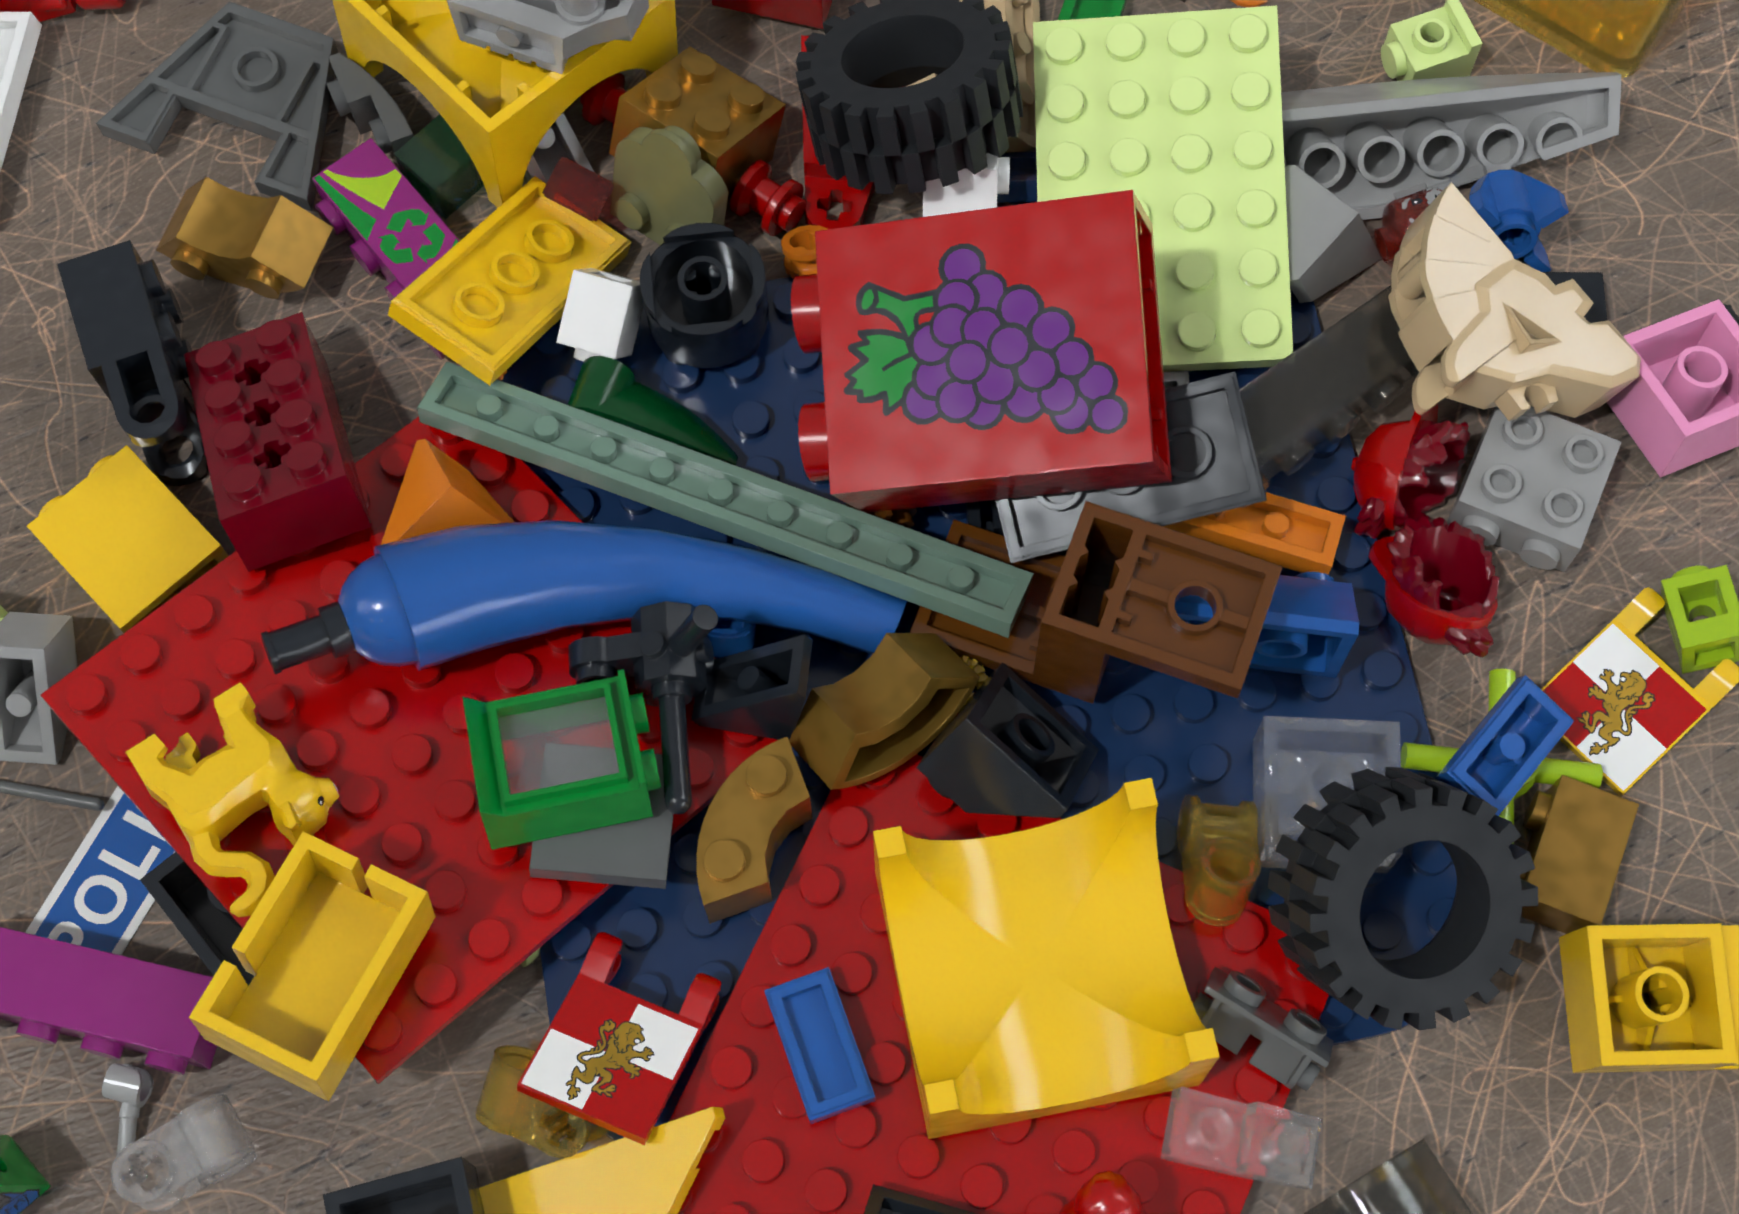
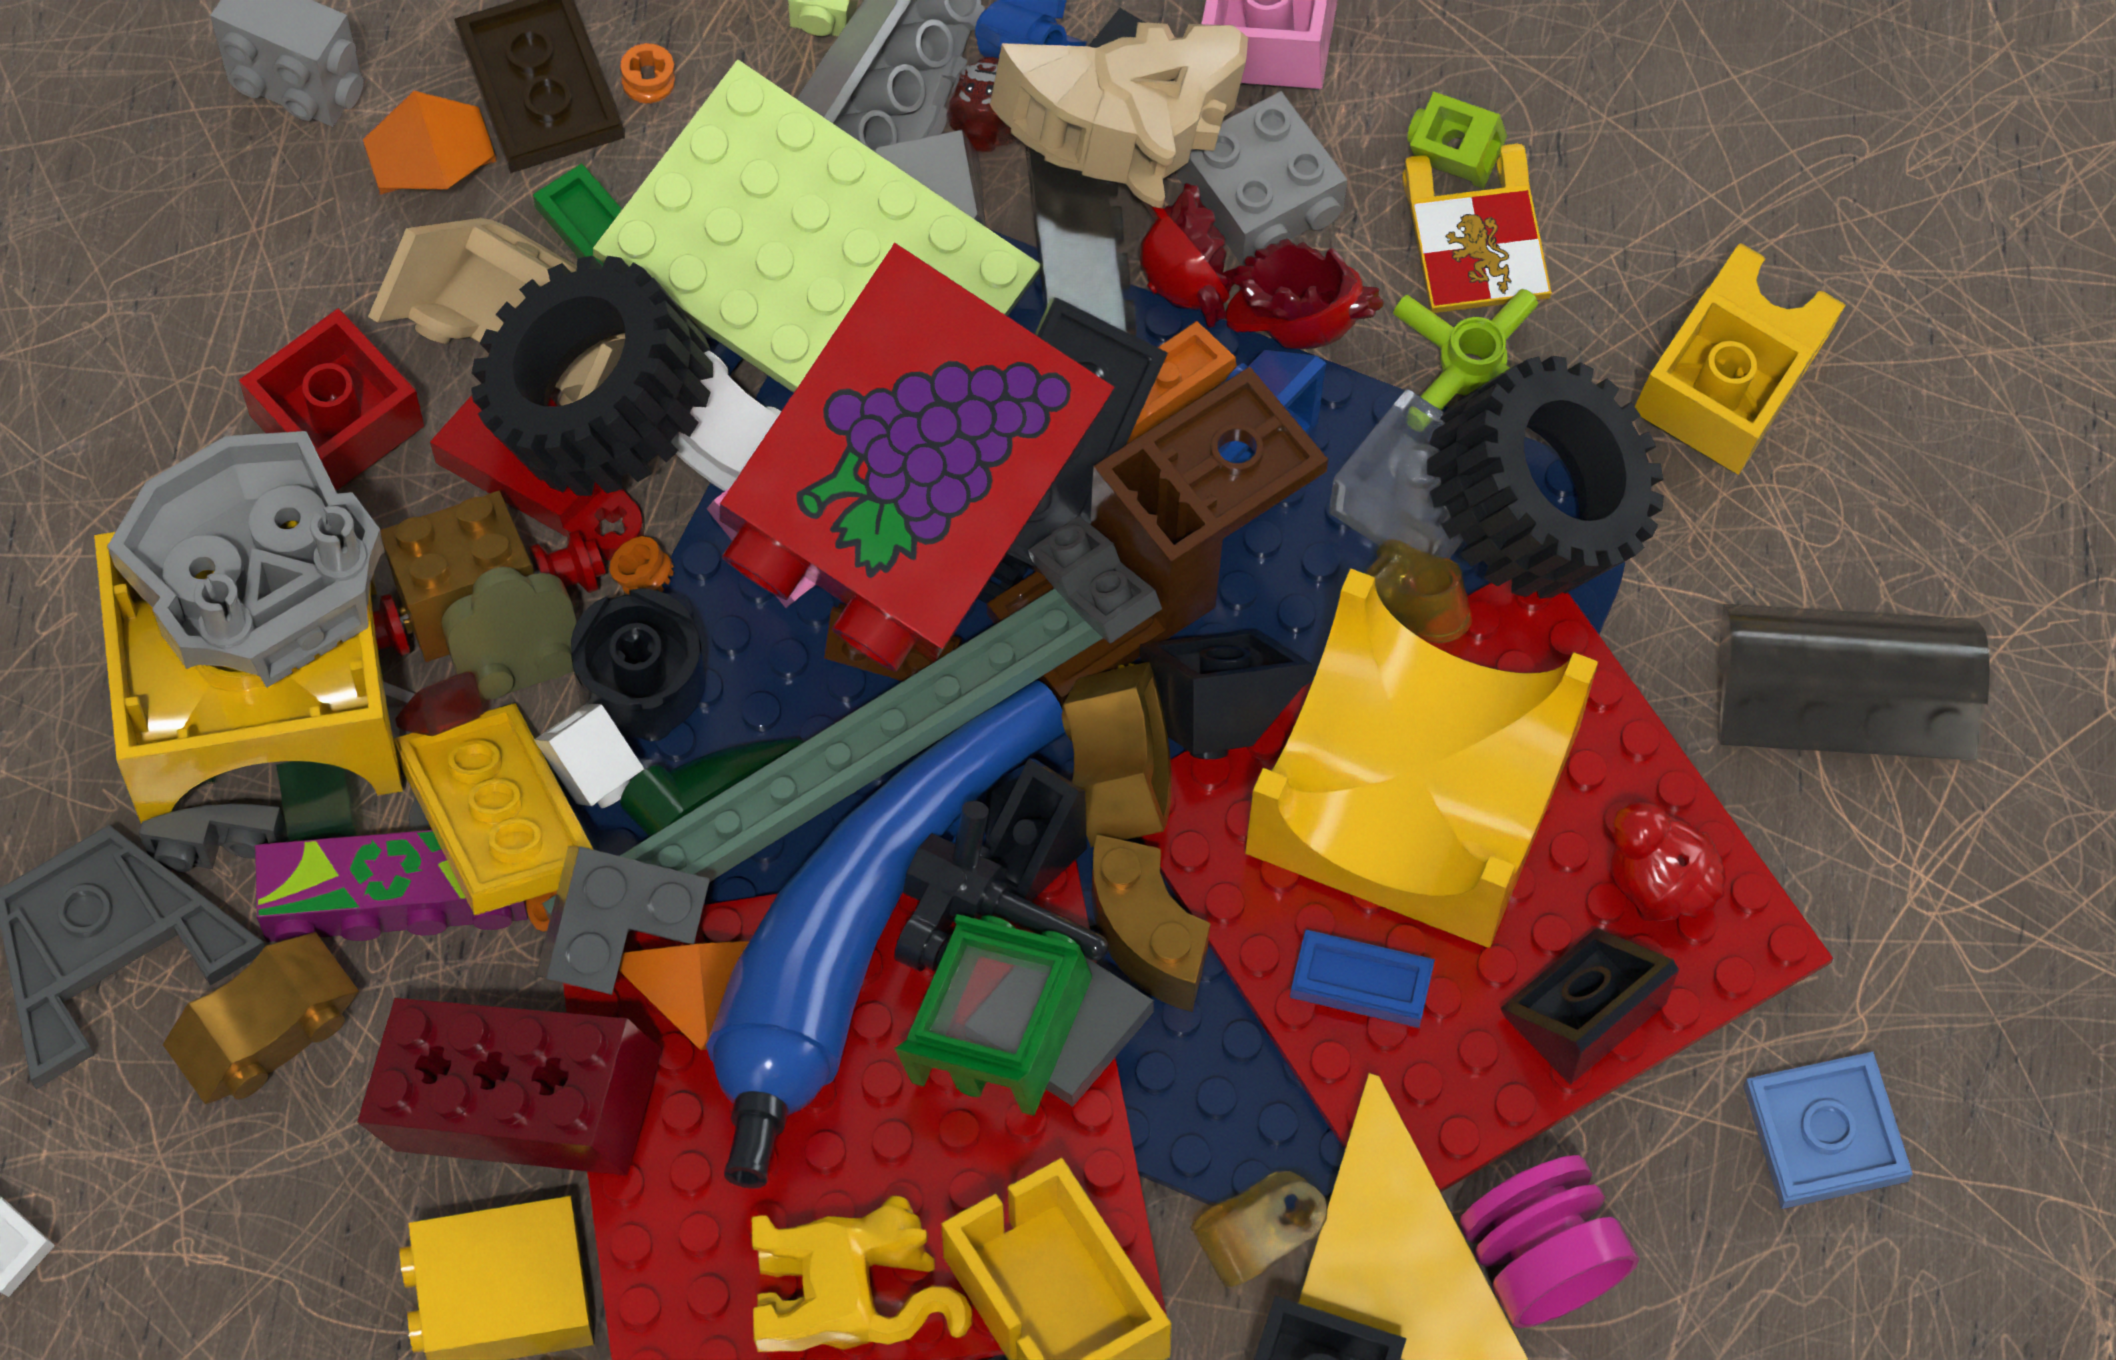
camera: 60 degrees left, 5 degrees down
(136, 352) = (326, 1163): black brick -> none
(454, 399) = (602, 900): none -> dark grey brick
(614, 1052) = (1262, 1133): flag -> none
(1015, 582) = (1093, 580): none -> dark grey slope
(1242, 1138) = (1643, 722): clear slope -> none
(1286, 1038) = (1594, 635): dark grey hinge -> none
(1507, 744) = (1472, 328): blue brick -> none
(1575, 852) = (1575, 328): pearl gold brick -> none

